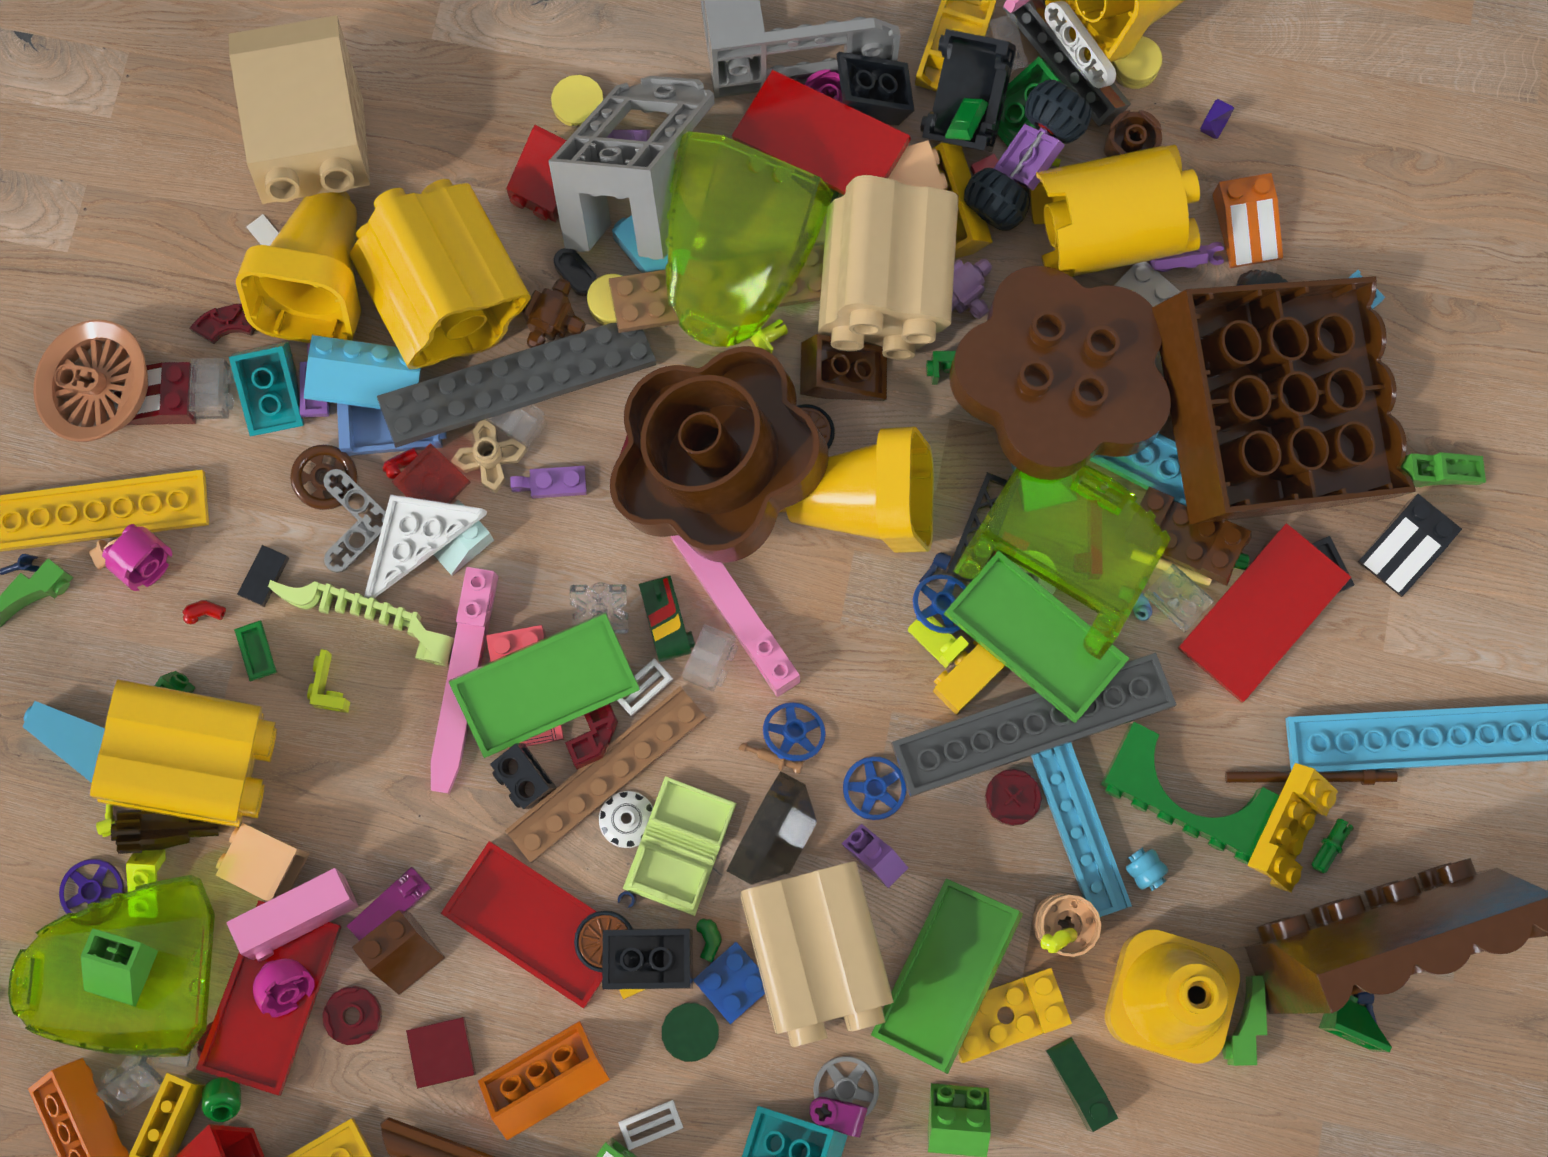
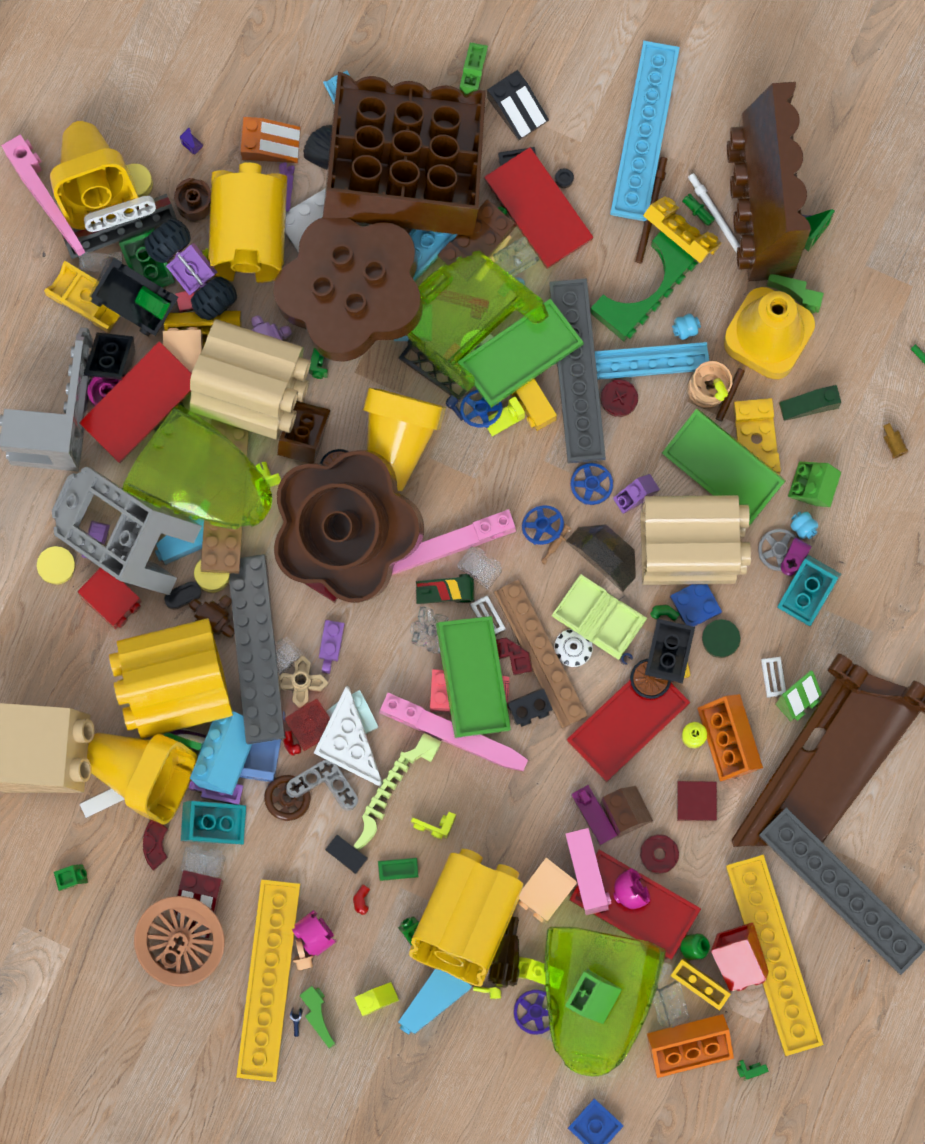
camera: 75 degrees left, 0 degrees up
(66, 664) = (376, 999): none -> neon yellow slope
(159, 227) = (70, 877): none -> green bracket
(368, 322) = (188, 738): none -> tile
(544, 1025) = (688, 737): none -> neon yellow head
(890, 1118) = (804, 525): none -> medium azure piece
(1054, 958) = (727, 400): none -> reddish brown bar
(1320, 639) = (564, 178): none -> black tile
(1361, 844) = (701, 191): none -> white bar

